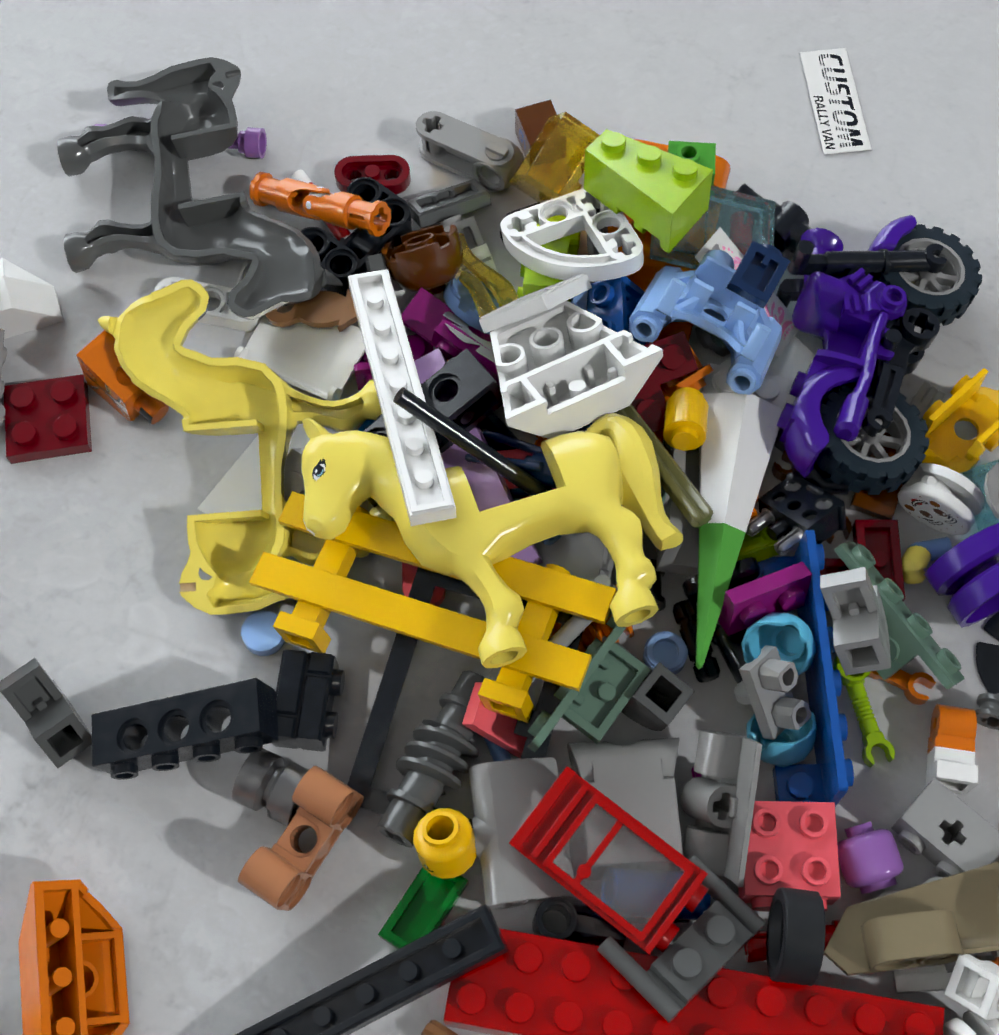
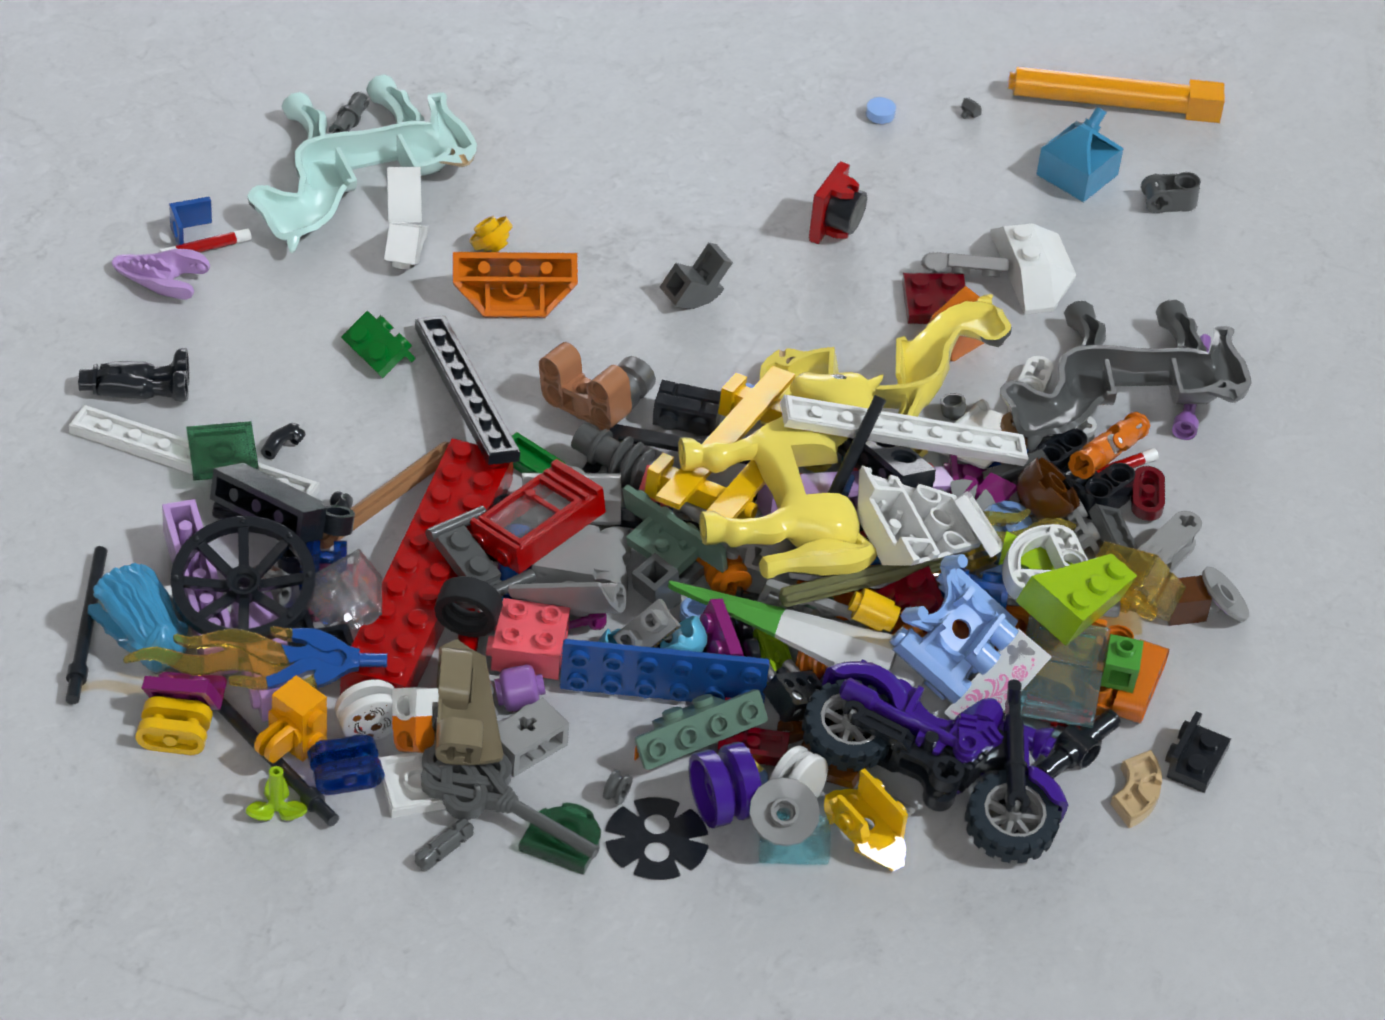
camera: 90 degrees right, 20 degrees down
(120, 731) = (672, 338): black brick -> none
(445, 843) = (570, 448): yellow head -> none
(525, 96) = (1224, 594): none -> light grey dish
(758, 122) = (1196, 755): none -> black bracket
(758, 273) = (984, 637): dark blue bracket -> none
(817, 172) = (1141, 788): none -> tan tile
(835, 101) = (1225, 821): white sticker -> none
(858, 621) = (691, 684): light grey brick -> none
(868, 725) = (662, 699): lime brick -> none
(952, 748) = (591, 754): leg -> none

